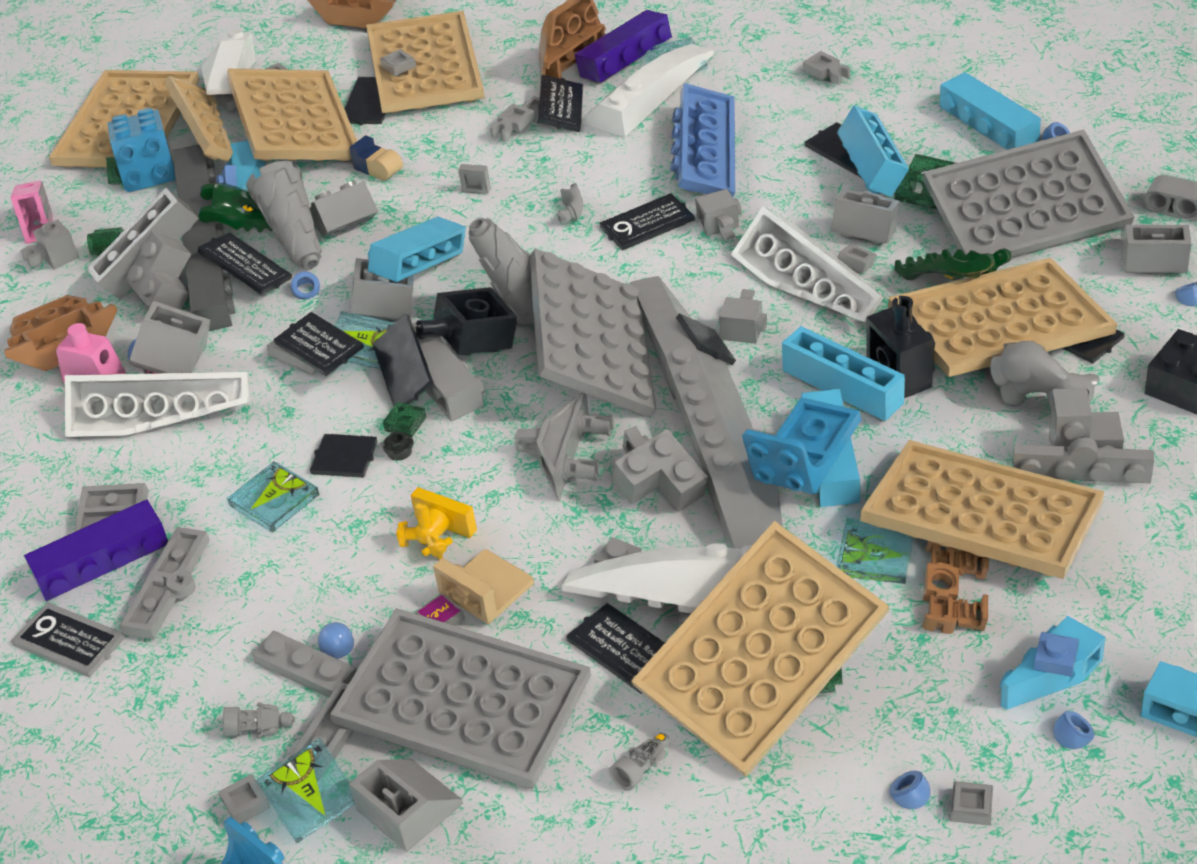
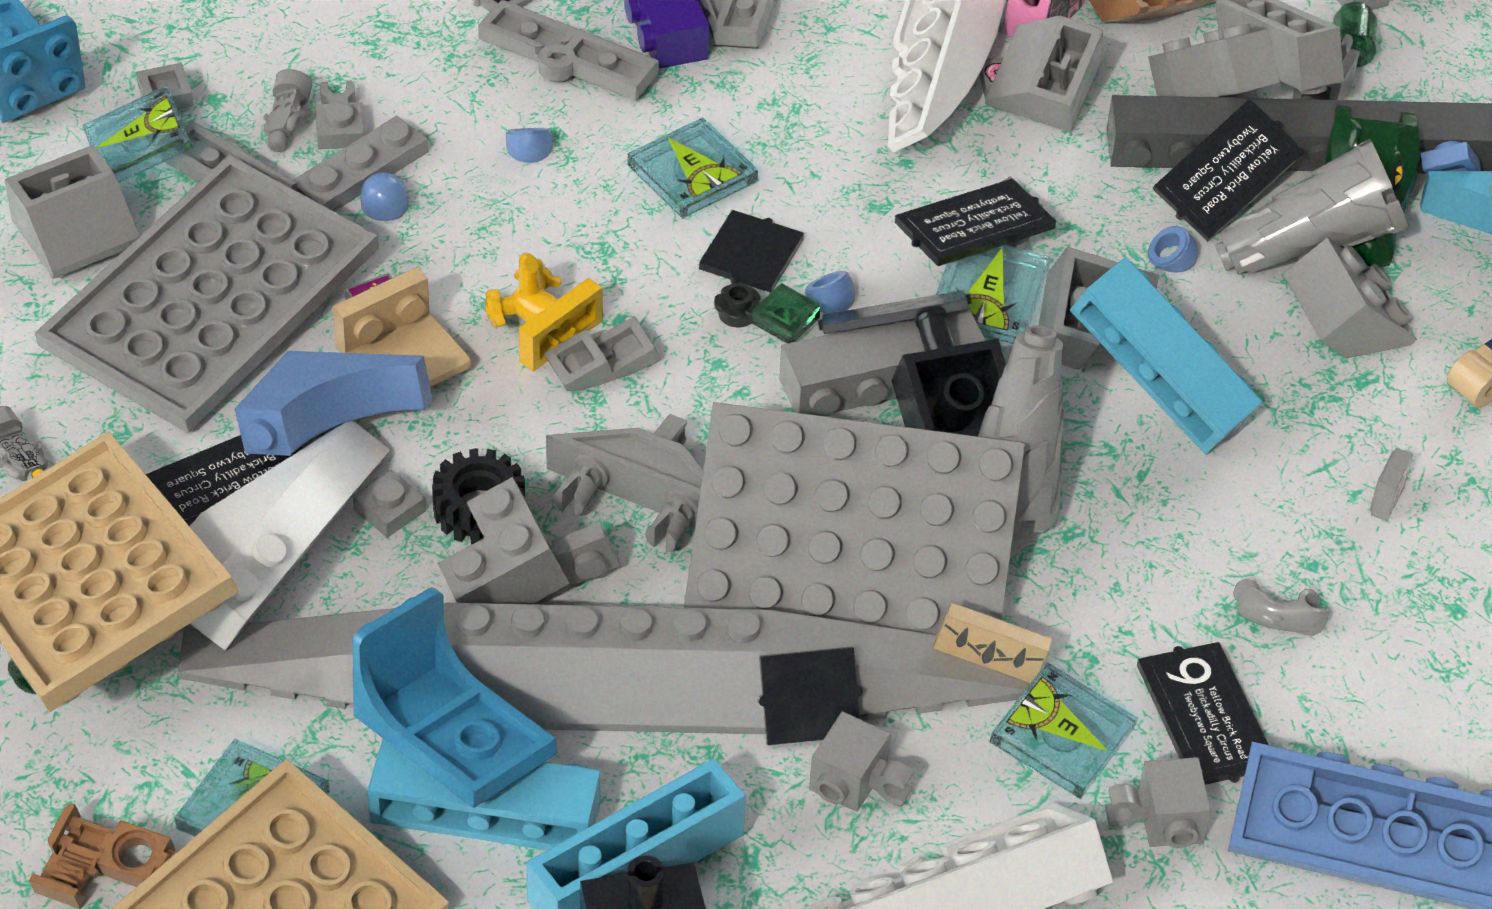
camera: 95 degrees right, 5 degrees up
(255, 688) = (338, 117): none -> light grey plate
(266, 587) = (529, 144): none -> medium blue piece
(371, 403) = (832, 291): none -> medium blue piece
(455, 486) = (593, 362): none -> light grey slope
(555, 602) = (325, 389): none -> medium blue arch
(602, 500) = (465, 476): none -> black tyre
(645, 278) = (992, 643): none -> tan tile
(683, 258) = (1063, 730): none -> clear light blue tile

